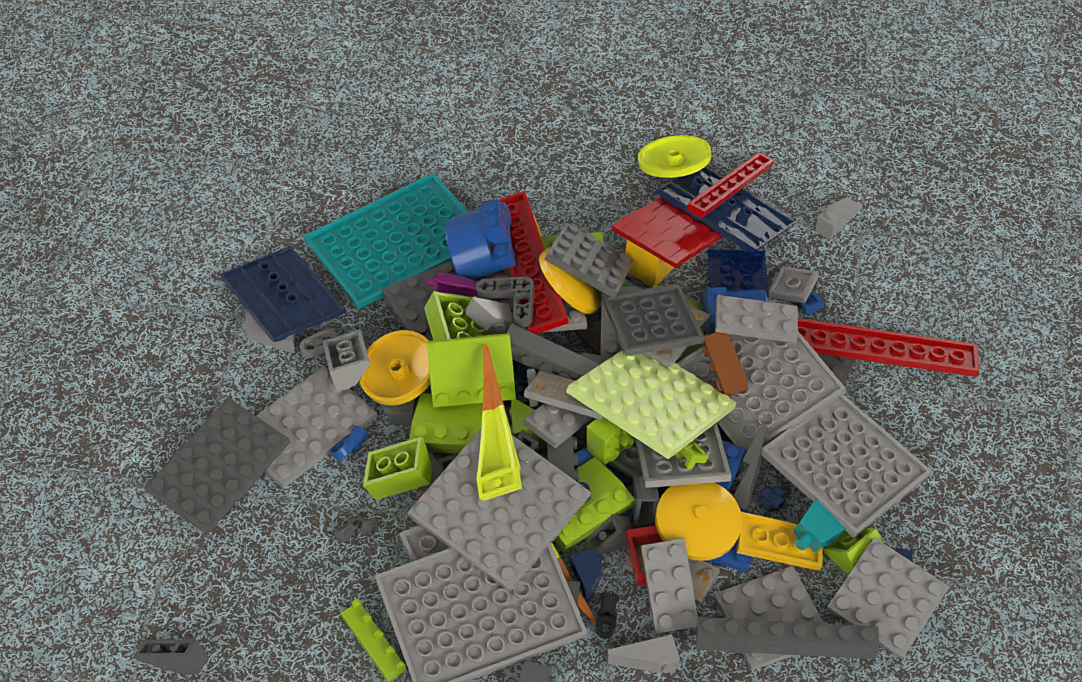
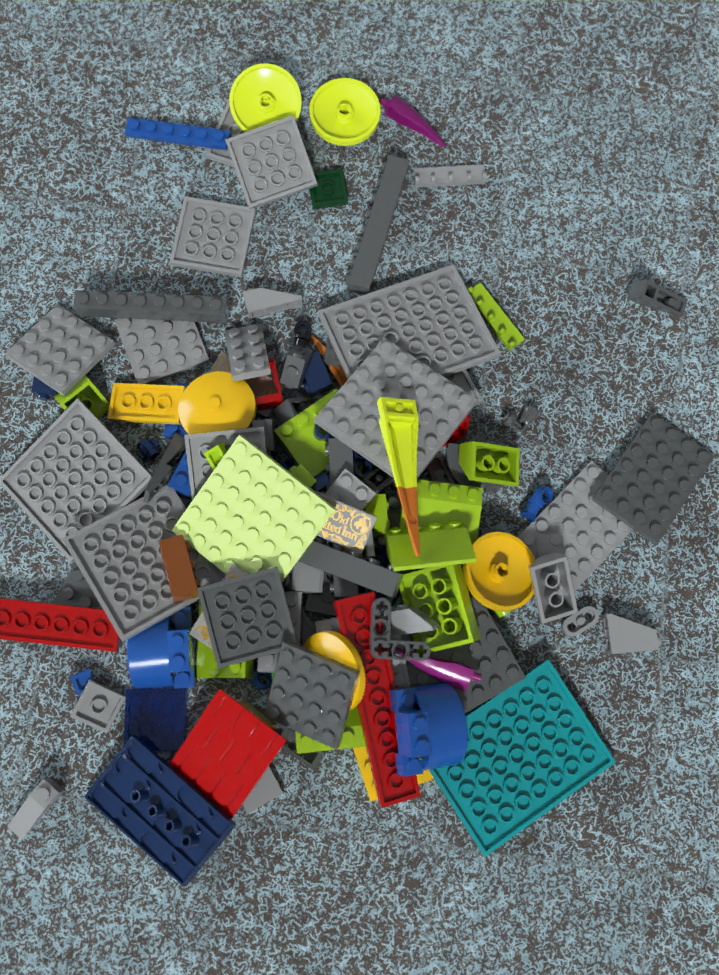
camera: 175 degrees right, 25 degrees up
(282, 294) = (613, 662): dark blue piece -> none
(611, 569) = (296, 366): none -> dark grey torso
(674, 156) = (210, 889): neon yellow dish -> none
(730, 185) = (150, 832): red plate -> none
(756, 319) = (141, 610): light grey plate -> none
(817, 528) = (113, 409): teal torso -> none

